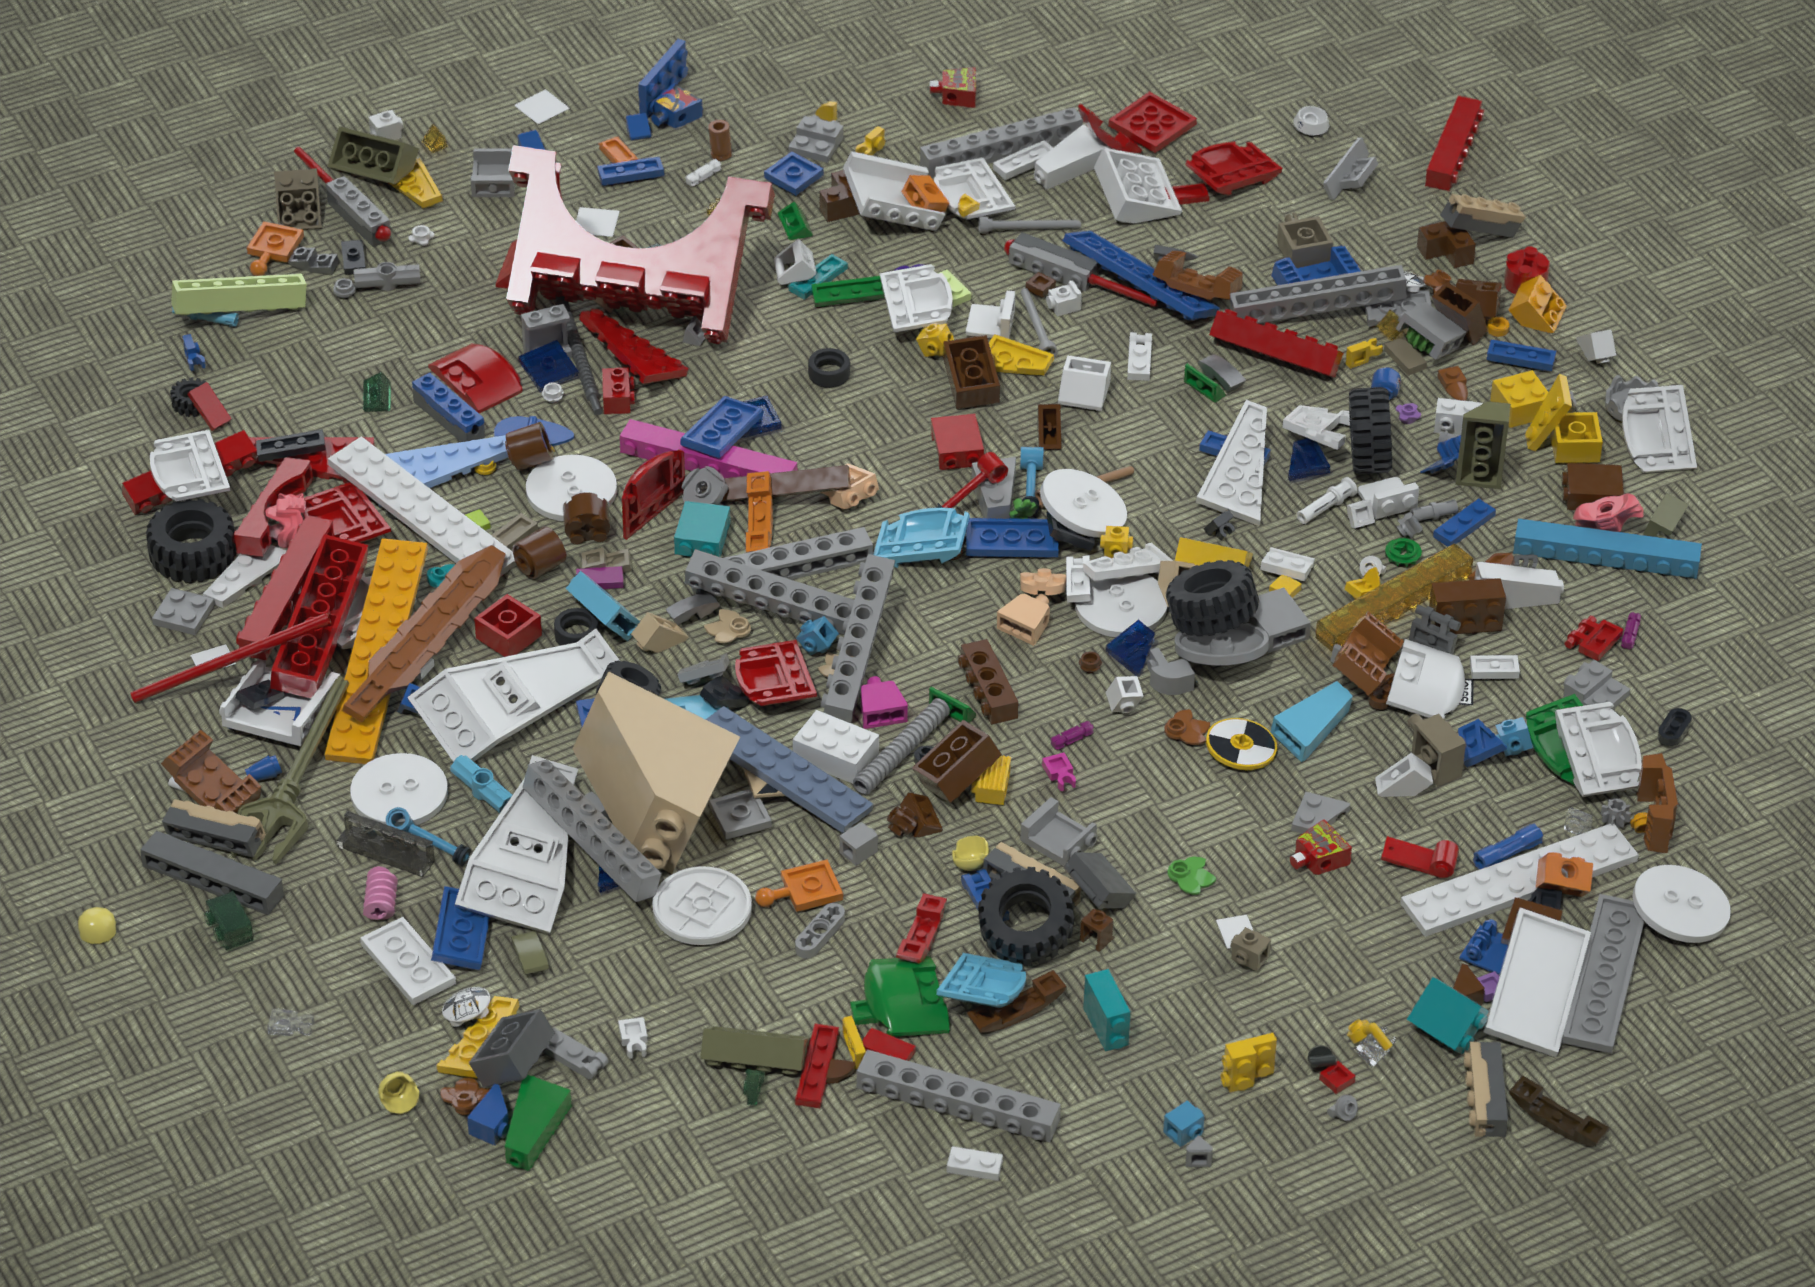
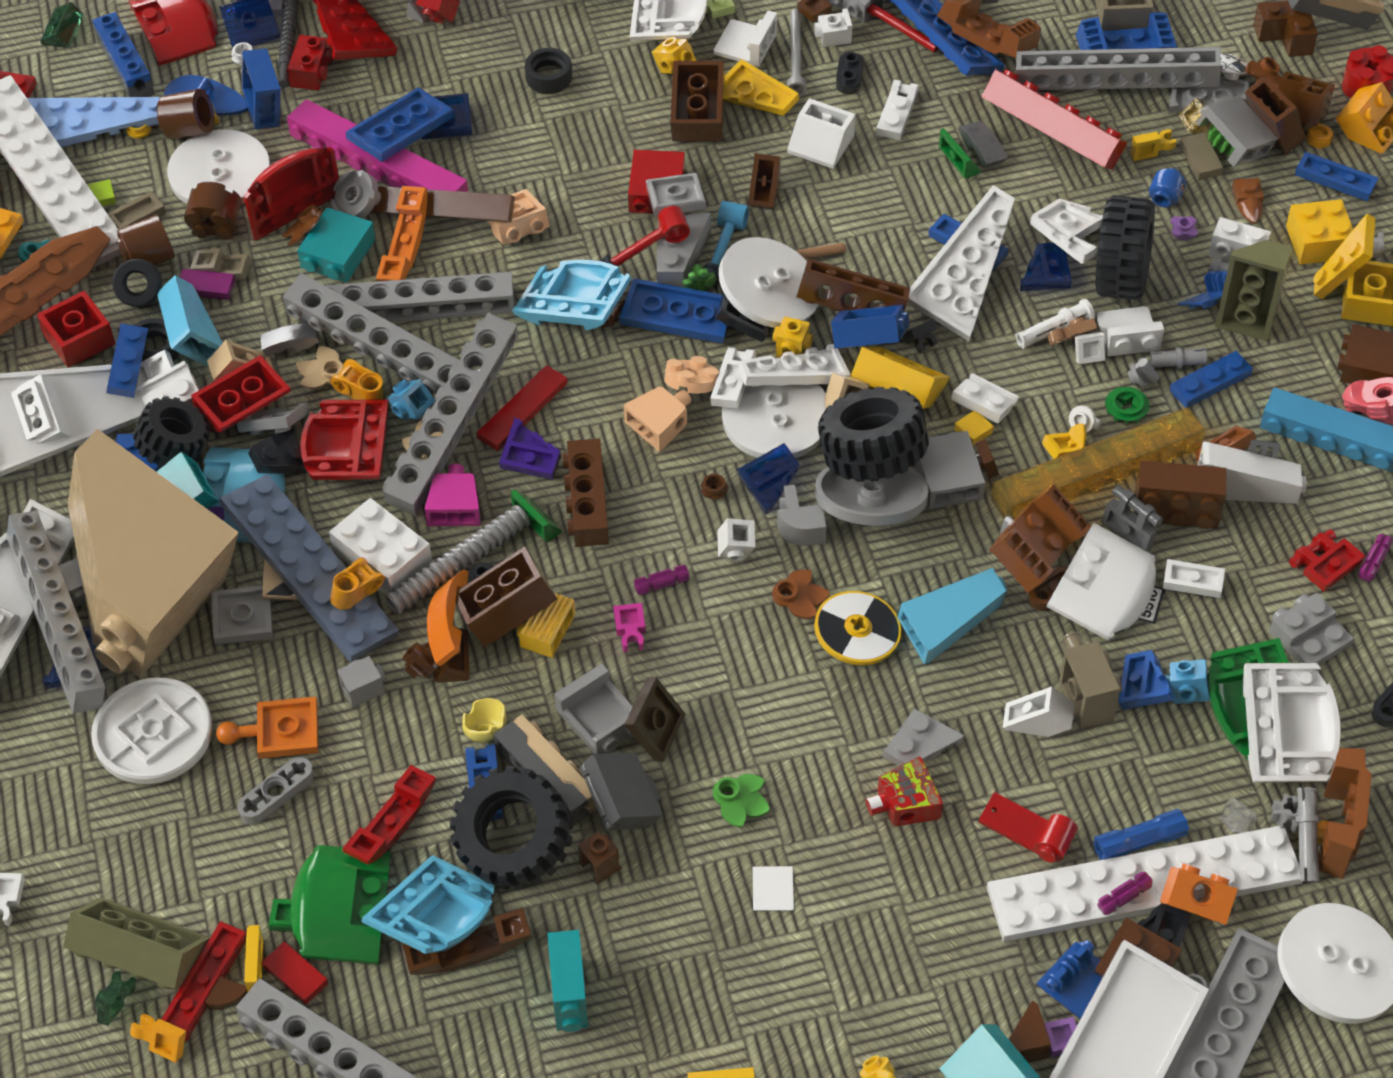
camera: 15 degrees right, 10 degrees up
(535, 593) = (120, 287): none -> black tyre
(567, 641) = (127, 360): none -> blue plate
(590, 431) = (261, 88): none -> blue window
(611, 651) = (172, 383): none -> white plate
(672, 513) = (307, 221): none -> dark orange plate
(675, 651) = (239, 394): none -> red slope
(767, 631) = (356, 380): none -> light orange piece
(805, 1103) = (162, 1037): none -> light orange plate
(830, 773) = (354, 584): none -> light orange piece
(908, 630) = (522, 406): none -> red tile
(912, 788) = (442, 635): none -> orange slope
(930, 661) = (529, 453): none -> dark purple wing
(978, 443) = (676, 190): none -> light grey plate
(1088, 333) = (849, 72): none -> black plate
(1107, 828) = (655, 719): none -> dark brown plate
(1147, 491) = (846, 281): none -> reddish brown brick
(1180, 521) = (869, 326): none -> blue window
(1250, 948) = (775, 923): dark tan brick -> none
(1305, 605) = (986, 459): none -> reddish brown plate
(1341, 505) = (1077, 327): none -> medium nougat plate
(1508, 884) = (1125, 893): none -> magenta axle
(1632, 814) = (1308, 834): none -> light grey pin

